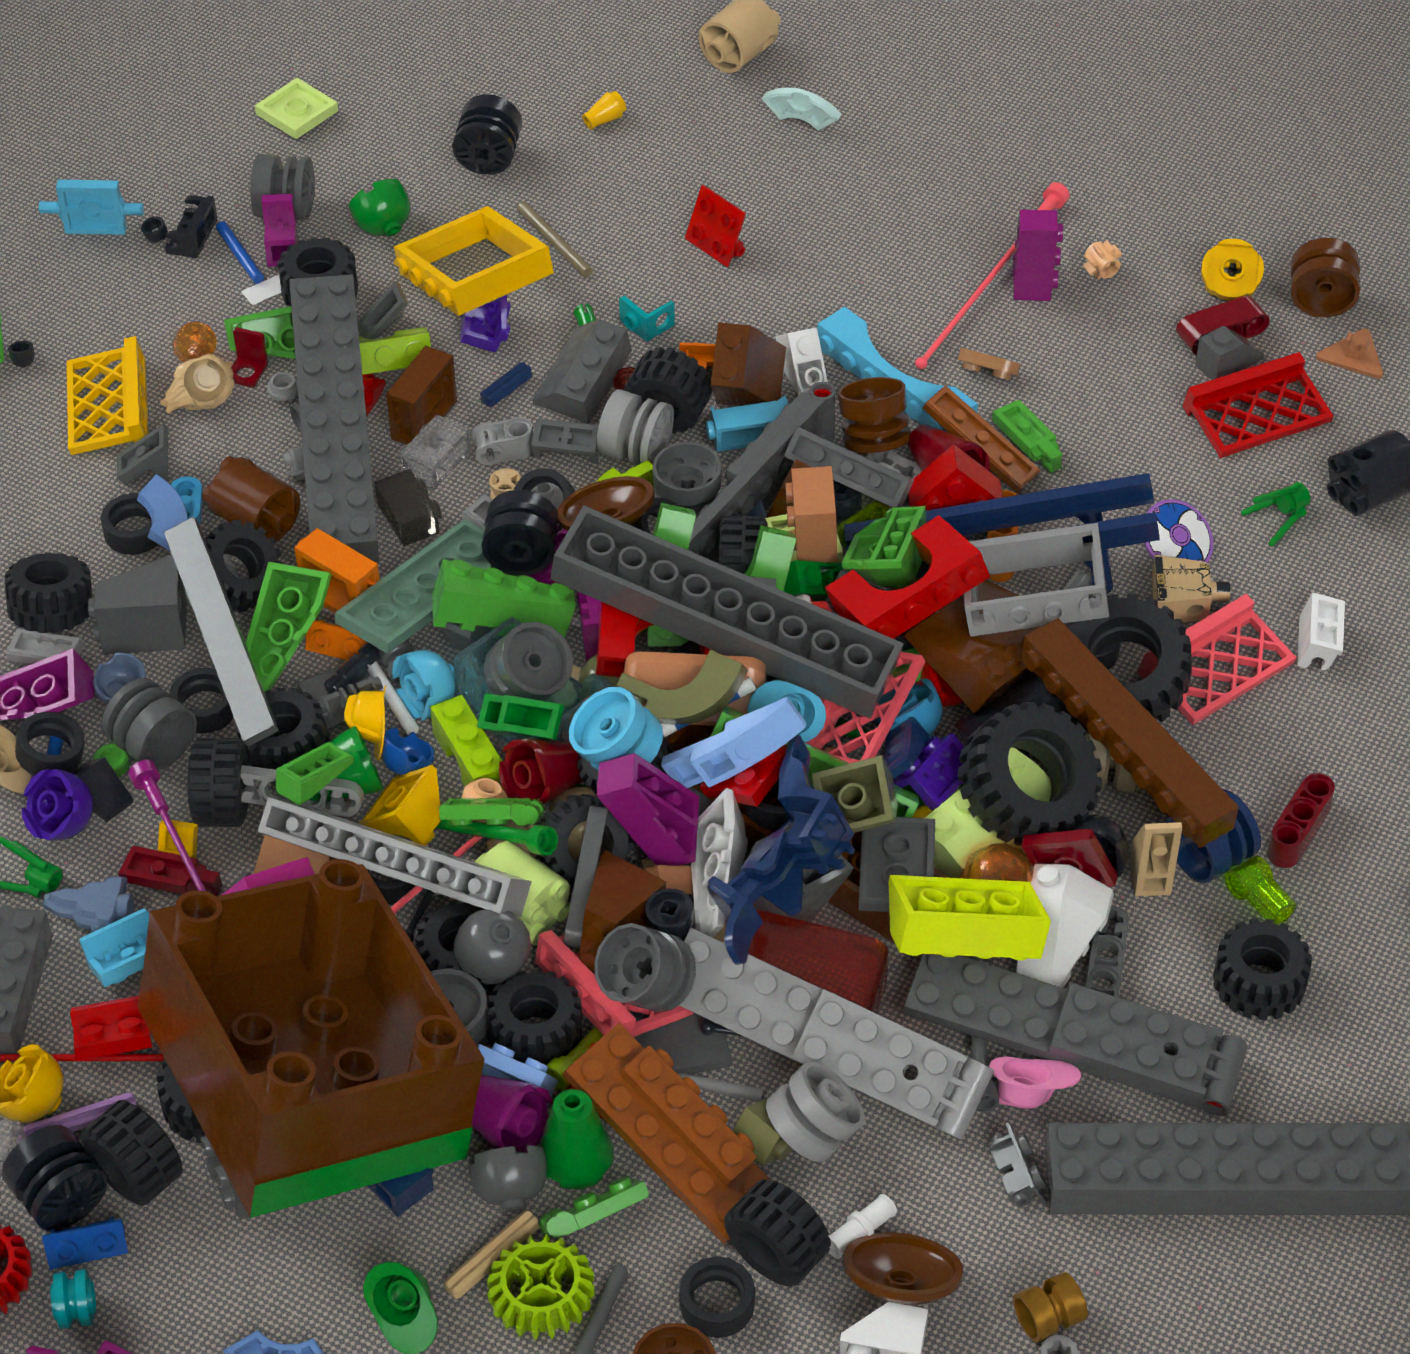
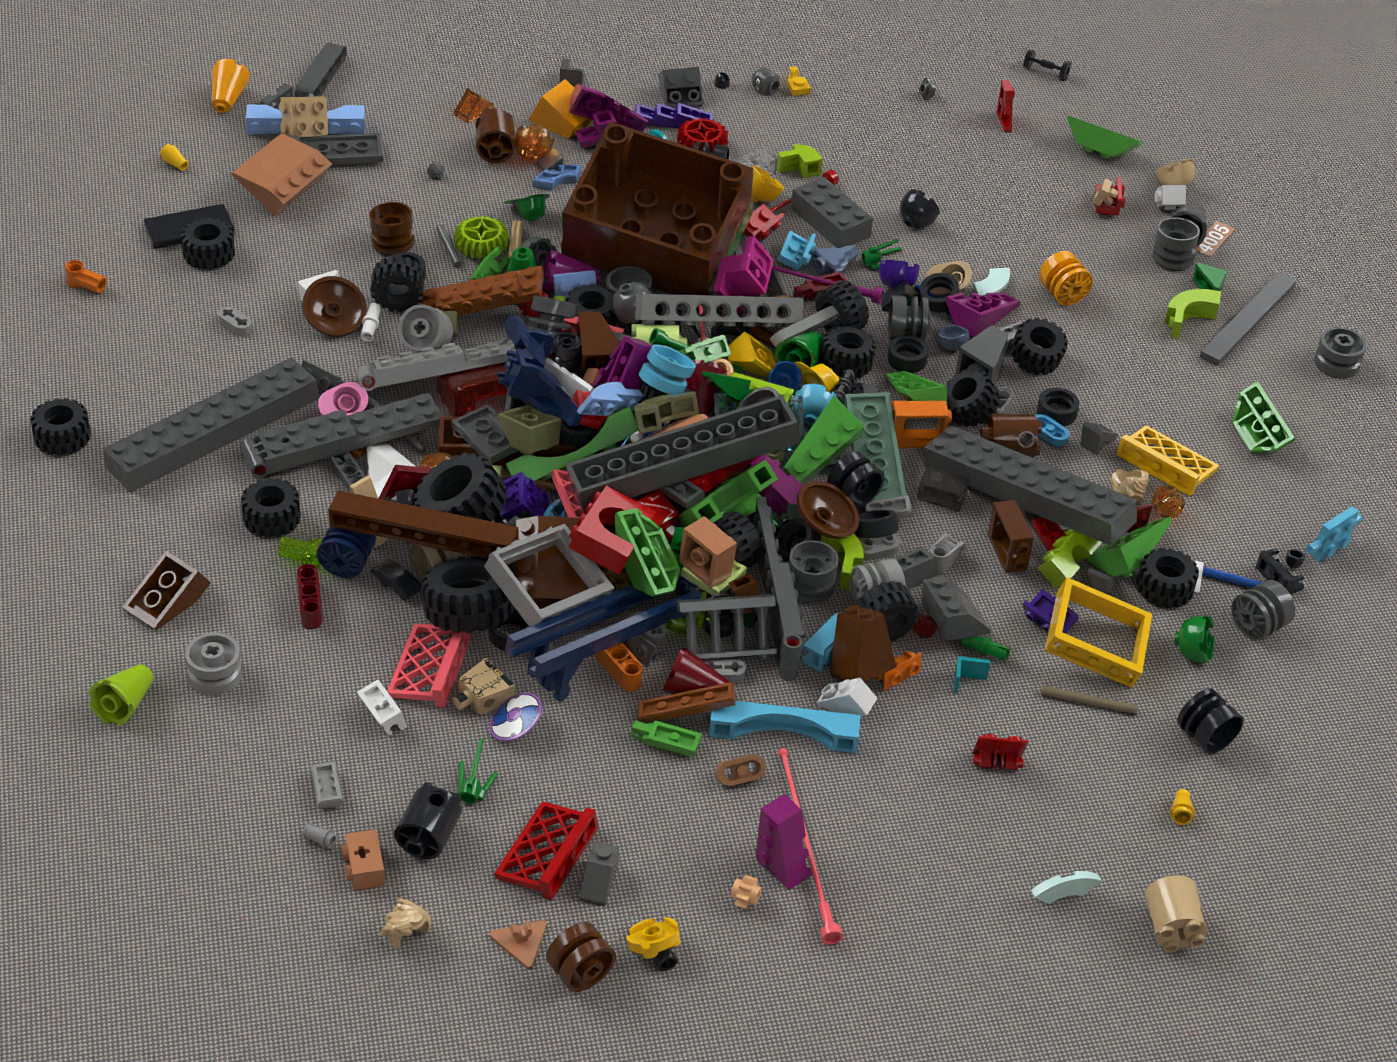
camera: 135 degrees right, 5 degrees down
(21, 353) = (1247, 449): black hinge -> none
(163, 507) = (1042, 406): medium blue tile -> none
(221, 632) = (924, 346): tile -> none
(279, 226) = (1221, 589): magenta brick -> none
(296, 108) = (1349, 685): yellowish green plate -> none
(302, 780) = (801, 306): bright green slope -> none
(436, 451) = (970, 524): clear brick -> none
(503, 481) = (910, 530): tan wheel -> none
(506, 384) = (990, 590): dark blue axle -> none
(874, 414) = (758, 669): reddish brown wheel -> none
(904, 746) = (540, 489): dark blue slope -> none
(953, 481) = (658, 641): red brick -> none
(966, 917) = (429, 420): neon yellow slope -> none
(1046, 1308) = (258, 330): pearl gold wheel -> none
(1239, 315) = (622, 894): dark red beam -> none

